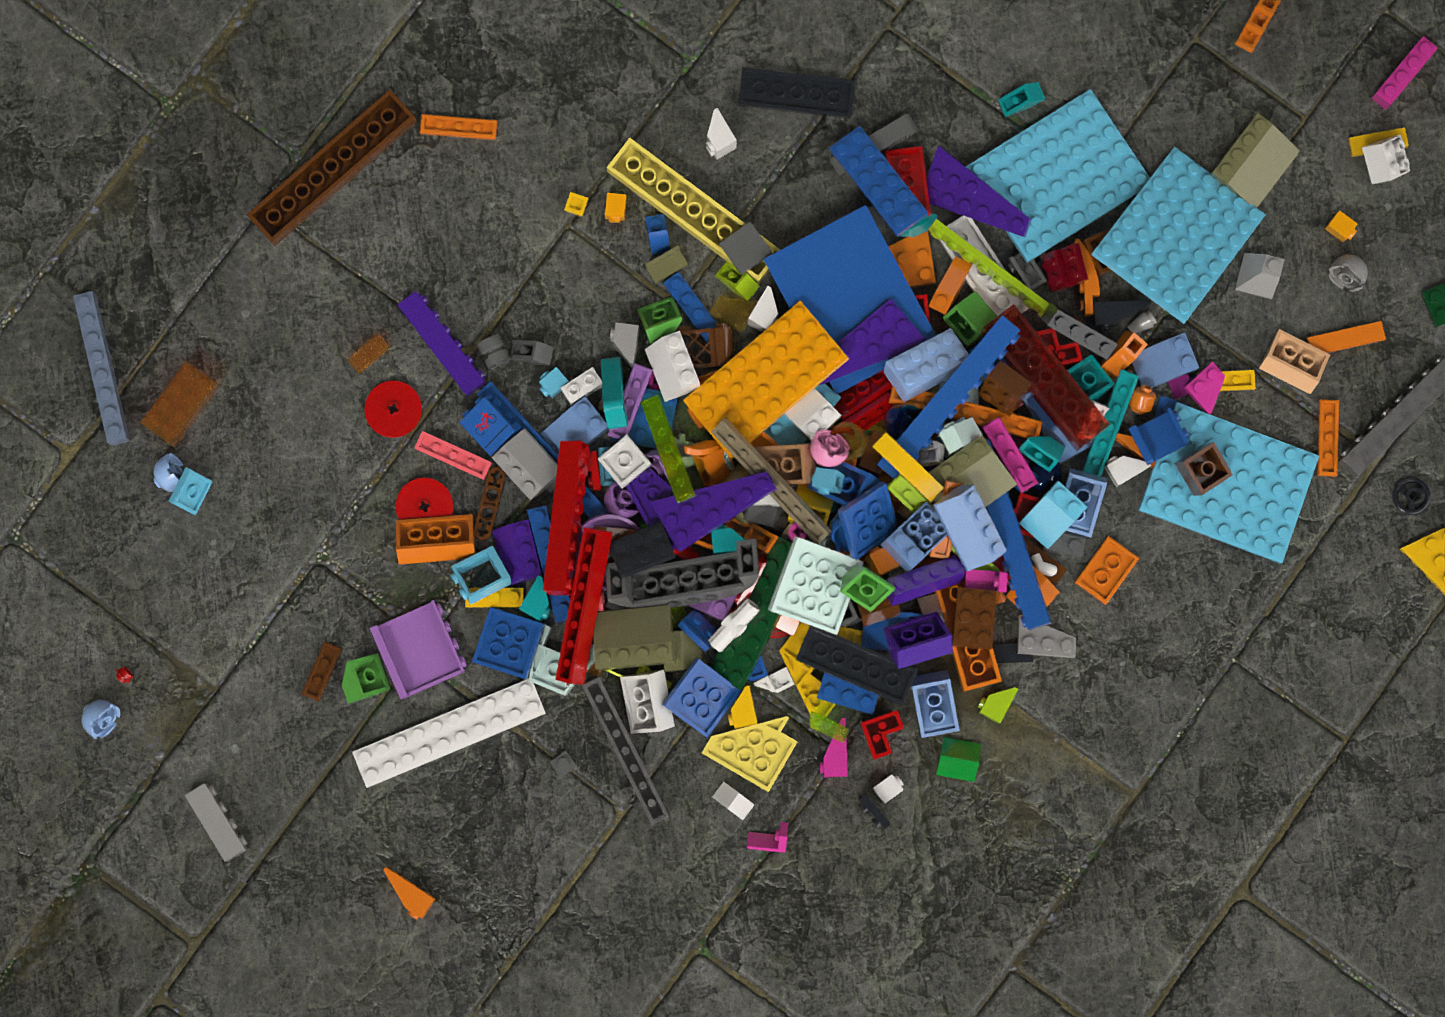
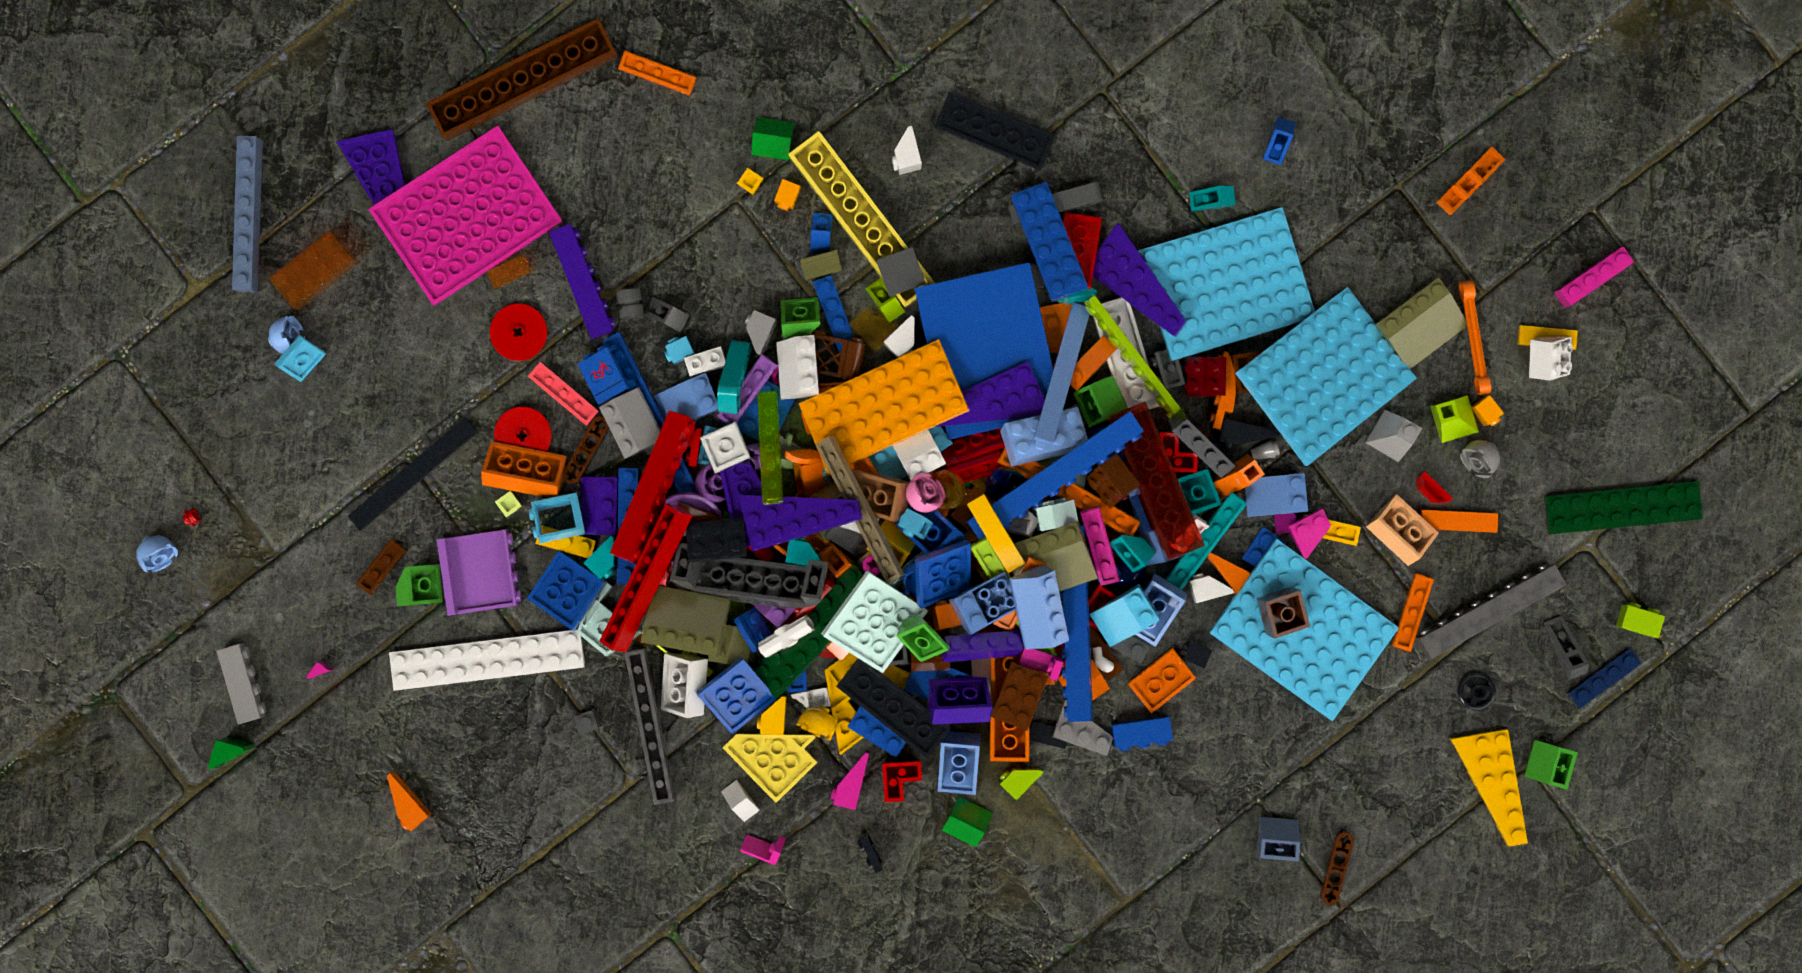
camera: 15 degrees right, 5 degrees up
(218, 293) = (375, 163): none -> dark purple wing
(221, 890) = (227, 750): none -> green slope
(288, 787) = (318, 669): none -> dark pink slope
(312, 311) = (465, 215): none -> dark pink plate
(328, 573) = (412, 474): none -> black tile
(429, 575) = (508, 504): none -> yellowish green plate
(586, 158) = (772, 138): none -> green slope
(787, 702) = (818, 722): none -> yellow cylinder
(828, 727) = (850, 758): clear neon green slope -> none
(888, 788) = (892, 831): white brick -> none
(927, 301) = (1062, 374): none -> medium blue tile
(1069, 27) = (1279, 140): none -> blue slope
(1102, 625) = (1142, 733): none -> blue brick
(1132, 535) = (1195, 654): none -> black brick
(1142, 399) = (1244, 526): orange head -> none
(1160, 436) = (1250, 568): blue panel -> none
(1263, 690) = (1278, 839): none -> sand blue slope
(1311, 316) = (1431, 489): none -> red slope
(1312, 243) = (1454, 419): none -> lime slope
(1325, 703) = (1334, 867): none -> reddish brown beam
(1327, 198) = (1481, 379): none -> orange piece

